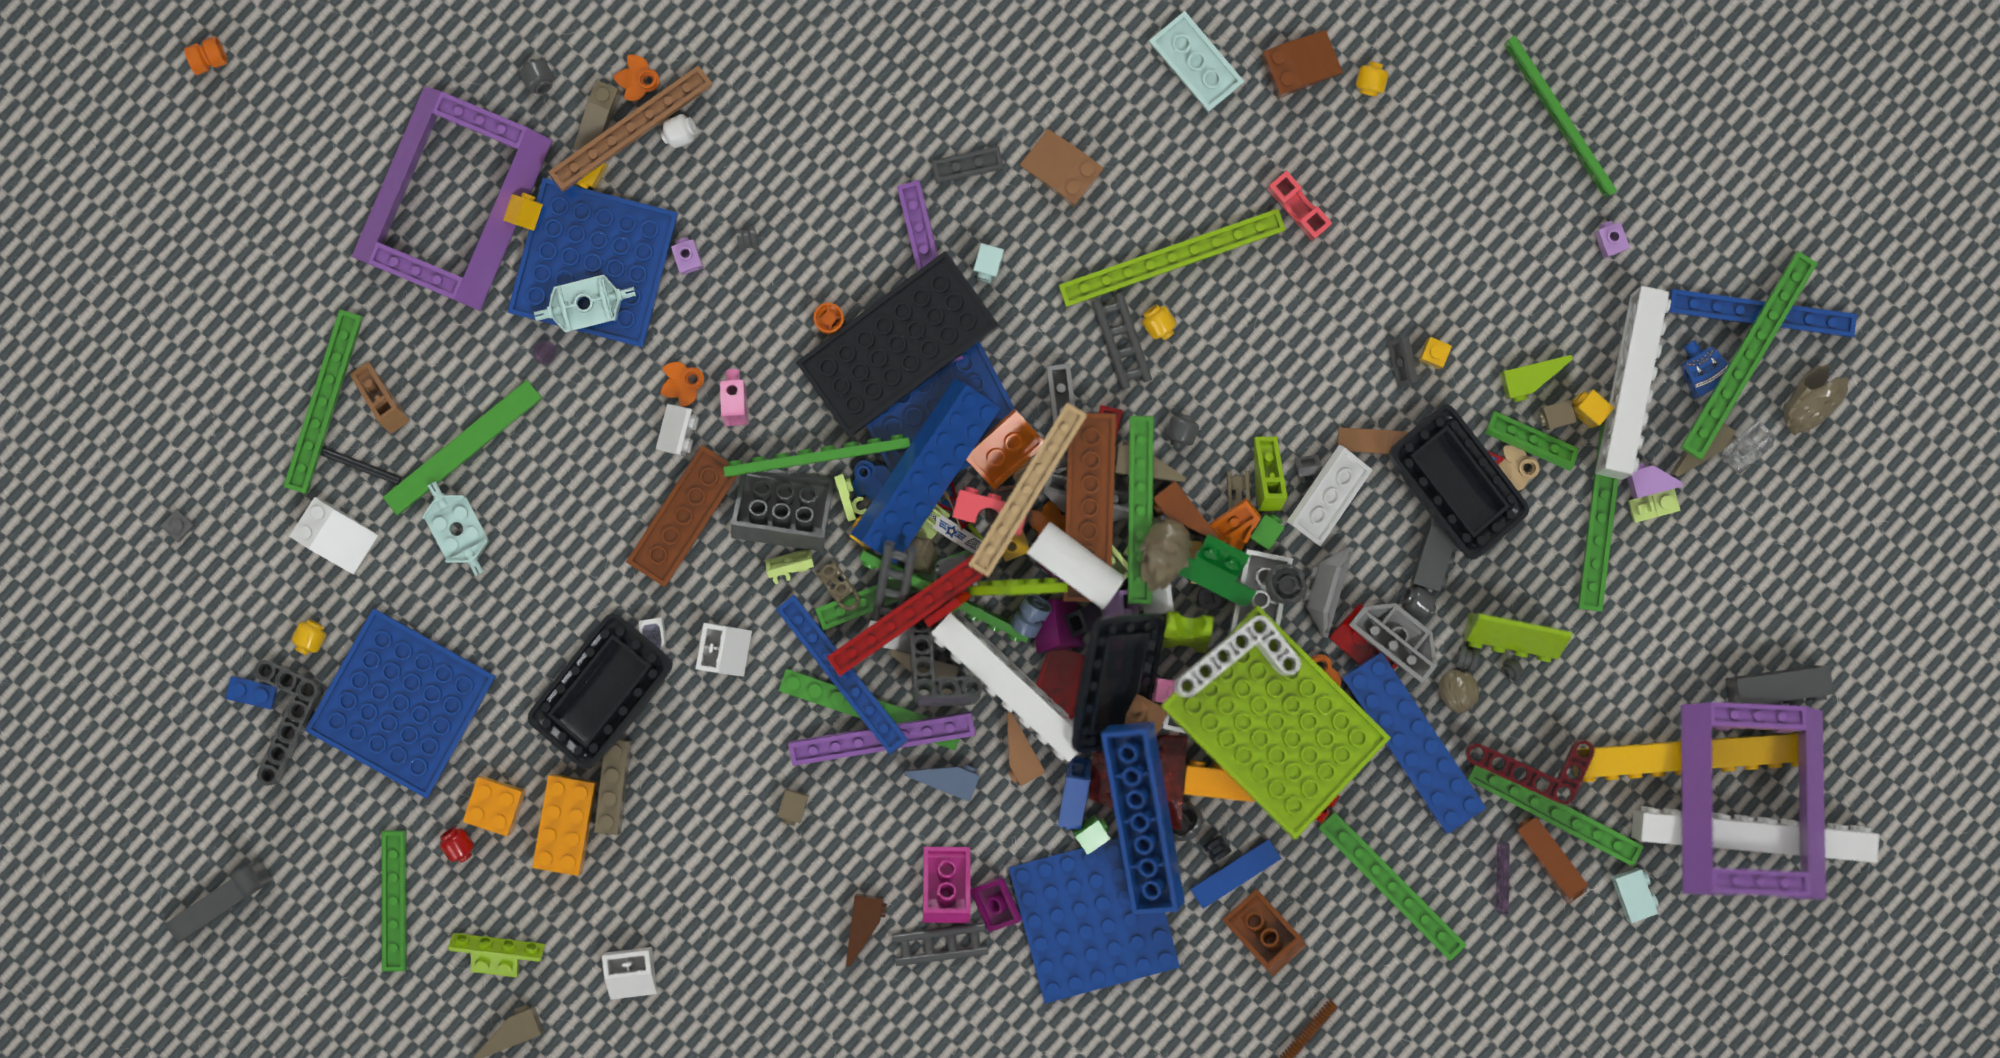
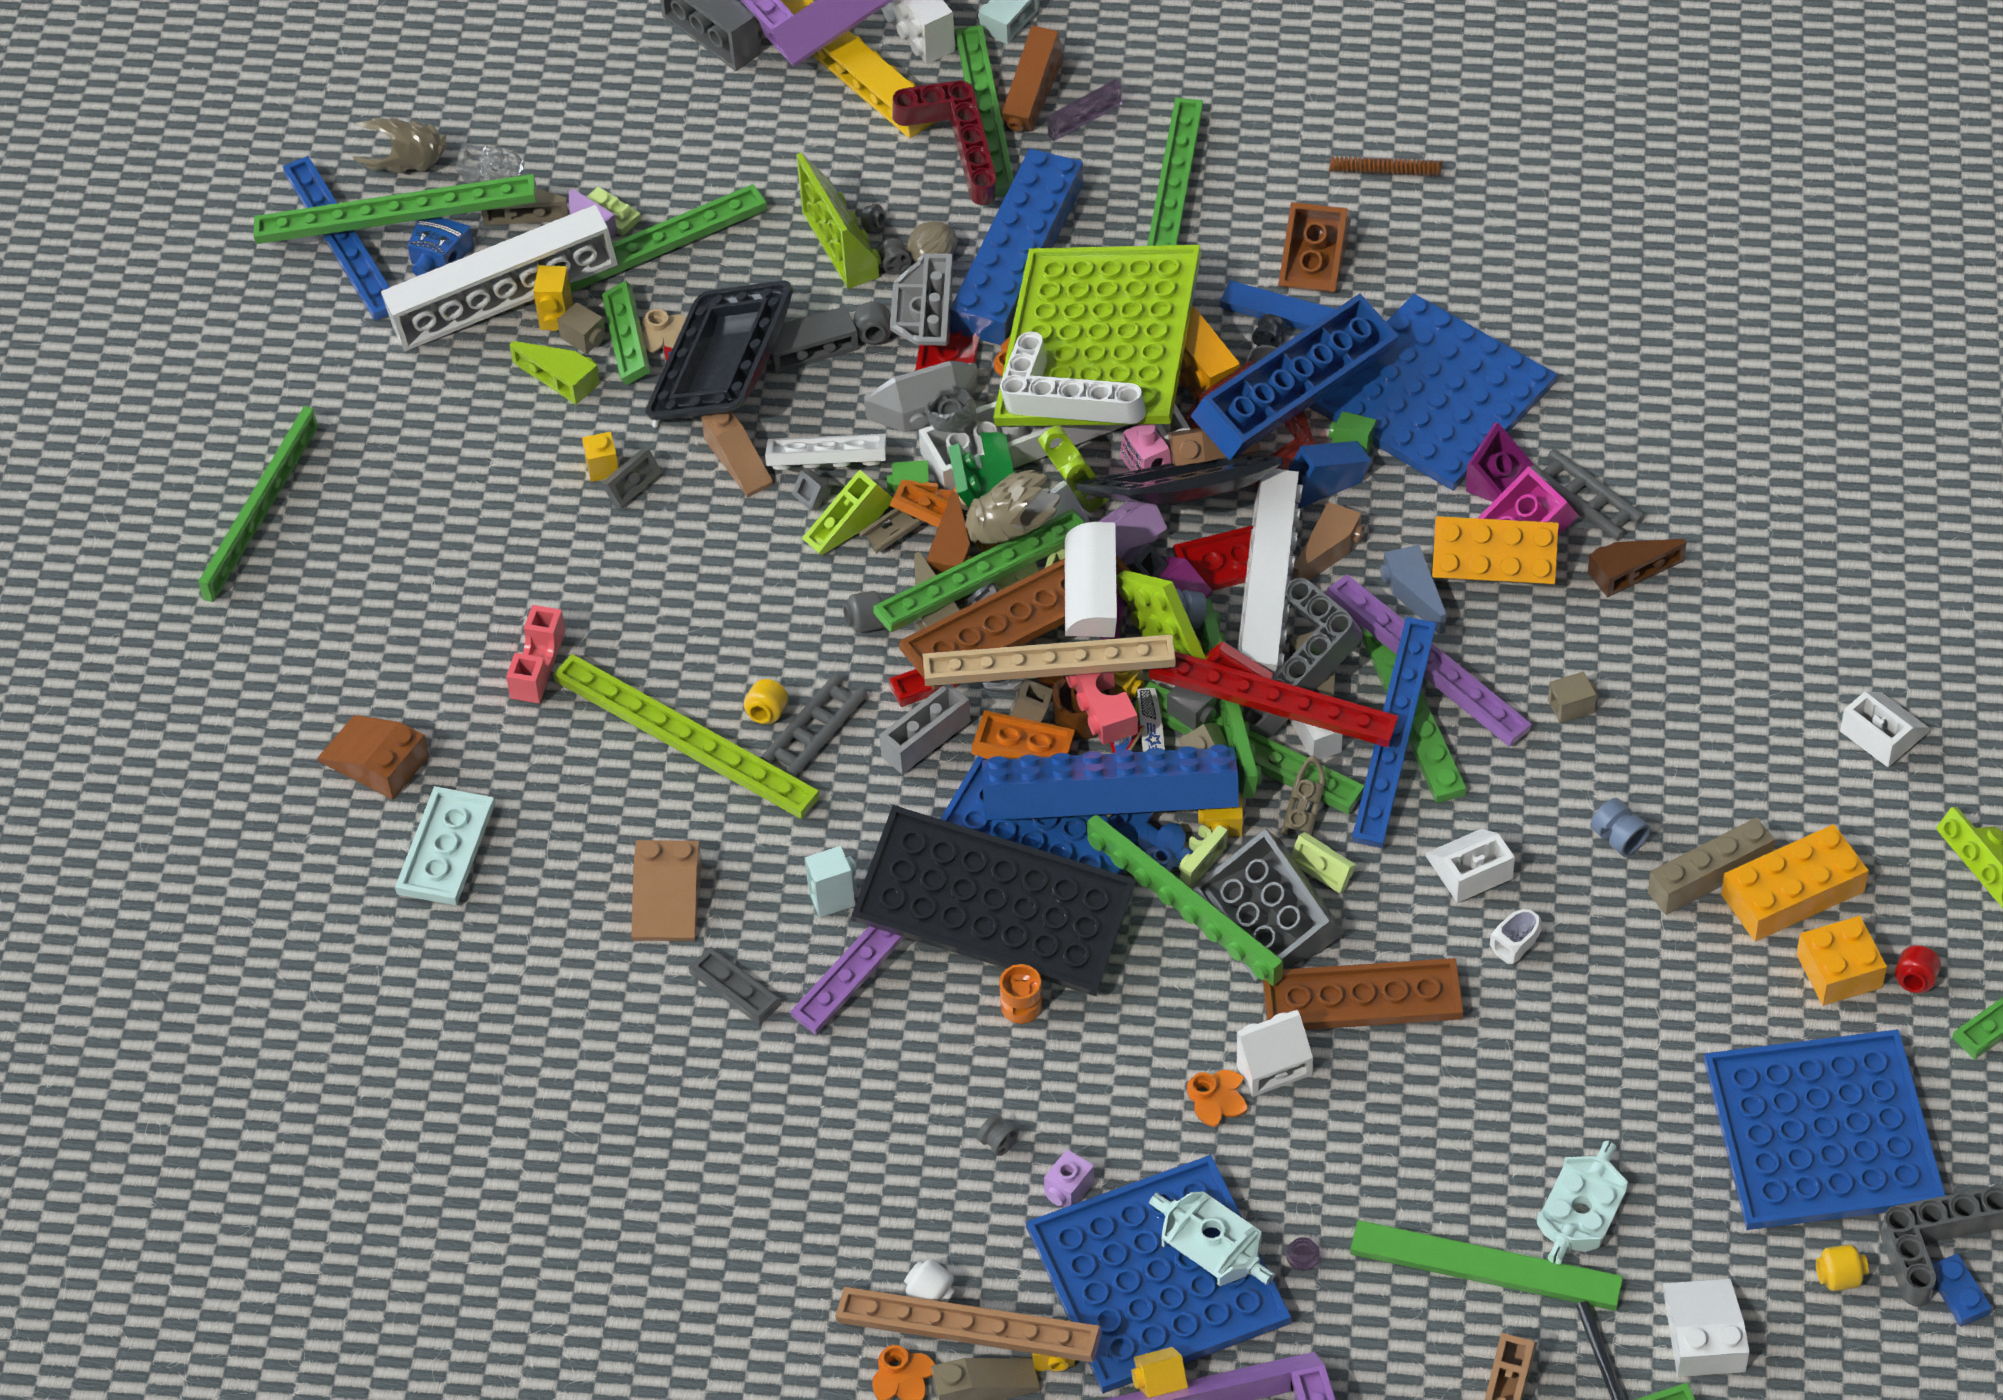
camera: 125 degrees left, 35 degrees down
(600, 691) = (1623, 931): black wedge -> none
(678, 756) = (1623, 830): none -> sand blue wheel
(734, 407) = (1191, 1022): bright pink torso -> none
(885, 572) = (1247, 740): dark grey bar -> none
(928, 843) = (1495, 550): none -> light orange brick
(1372, 79) = (342, 678): yellow head -> none
(1611, 239) = (359, 389): lavender brick -> none

